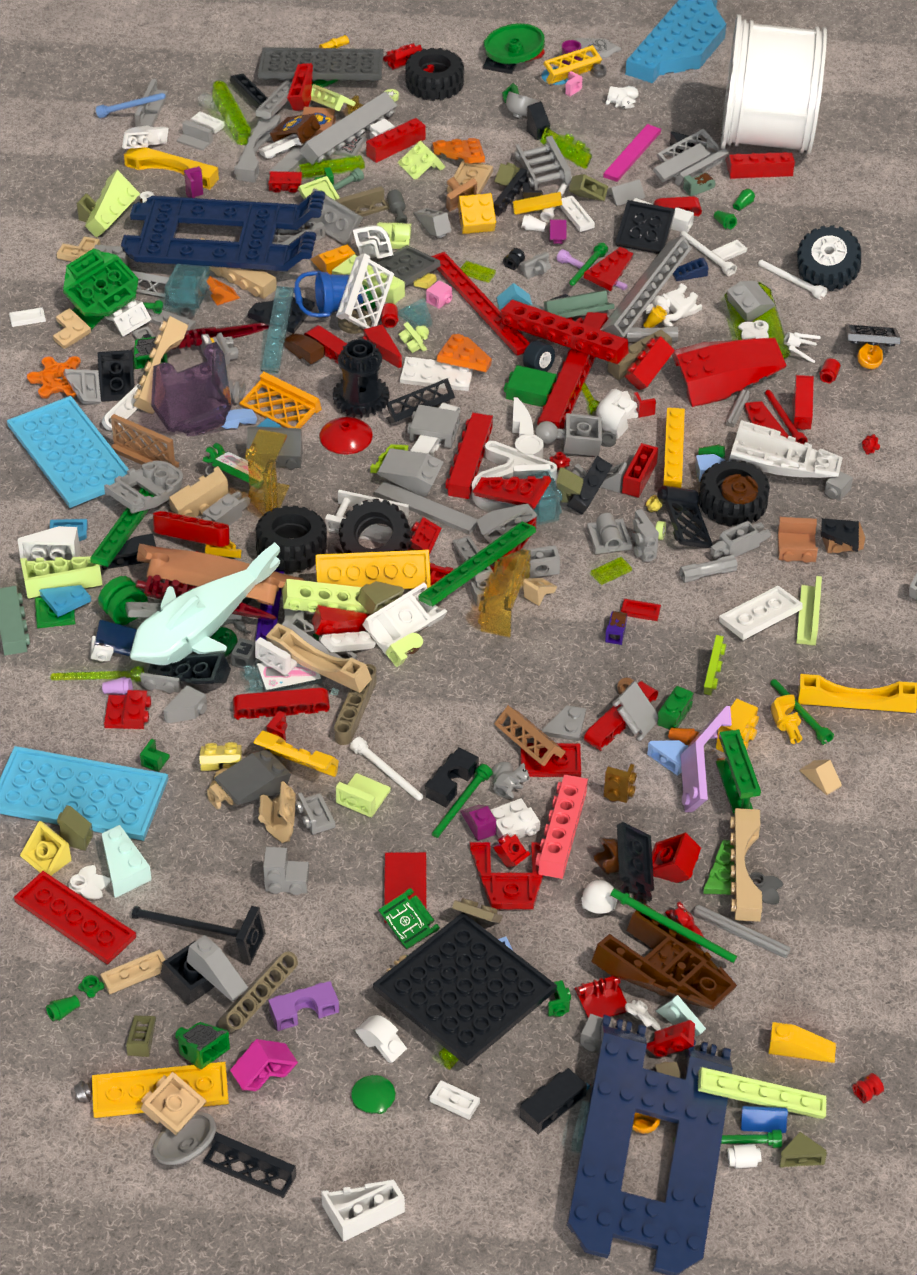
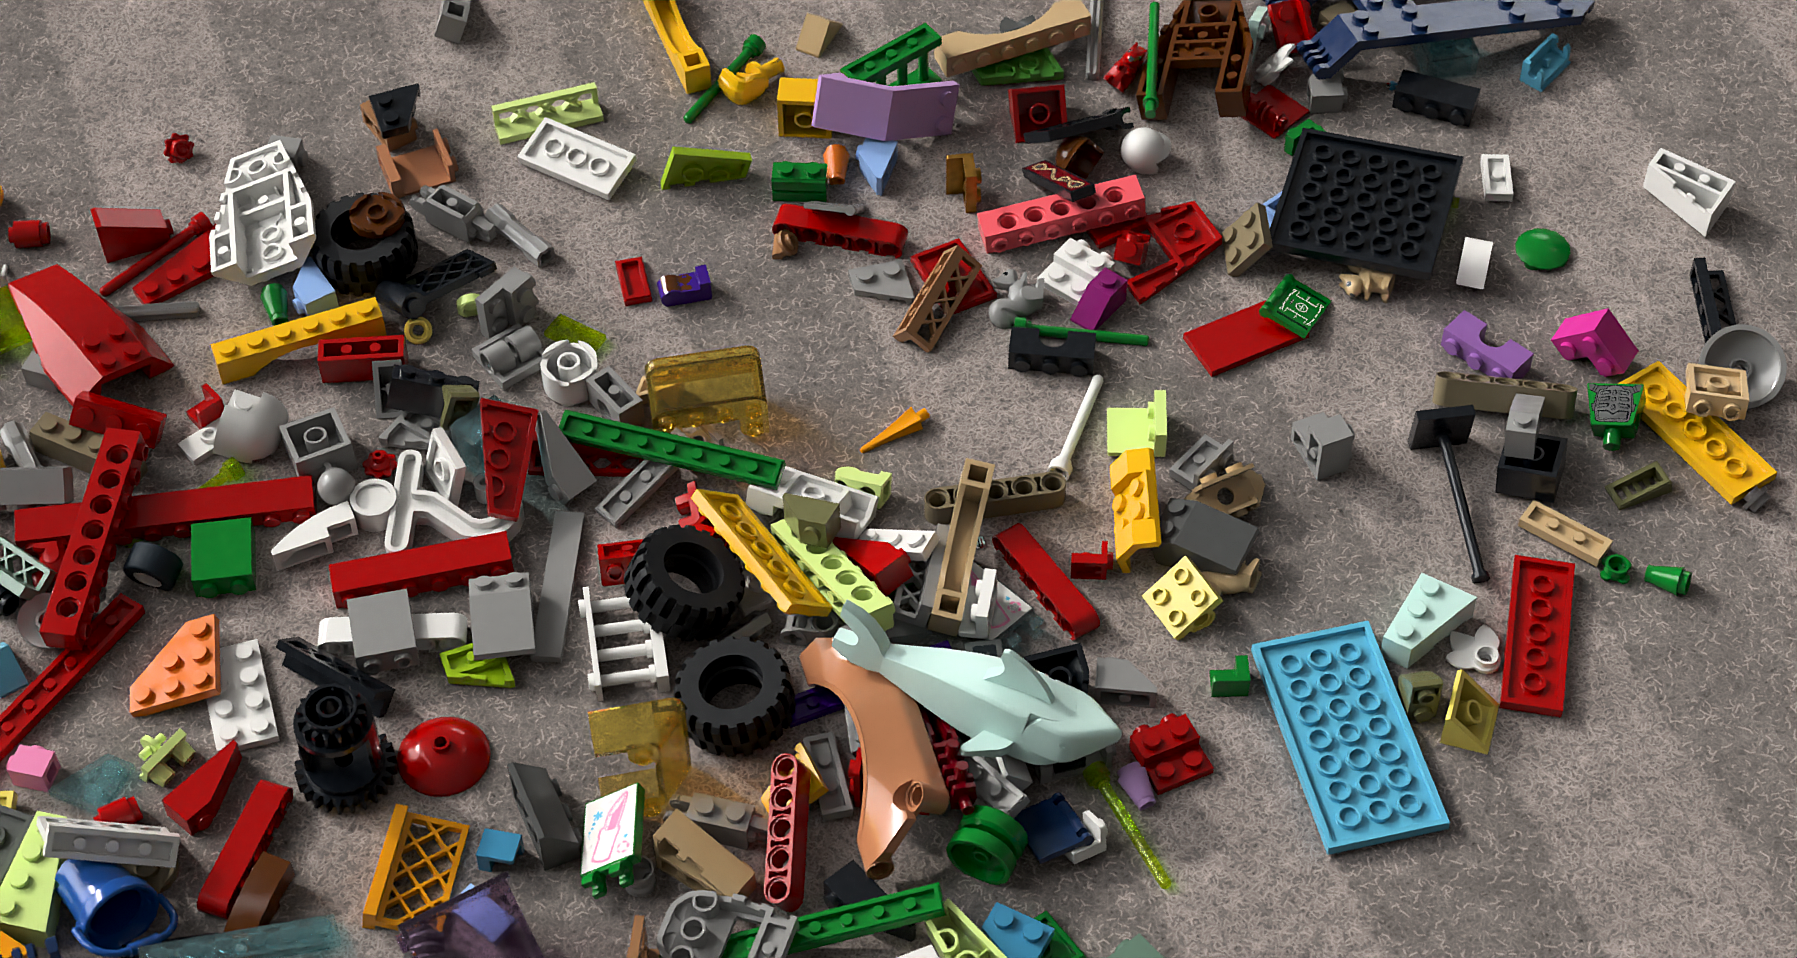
camera: 115 degrees left, 5 degrees up
(442, 688) = (904, 425): none -> light orange piece
(549, 1194) = (1545, 63): none -> medium azure hinge
(575, 550) = (565, 371): none -> white brick
(582, 826) = (1059, 180): none -> tile

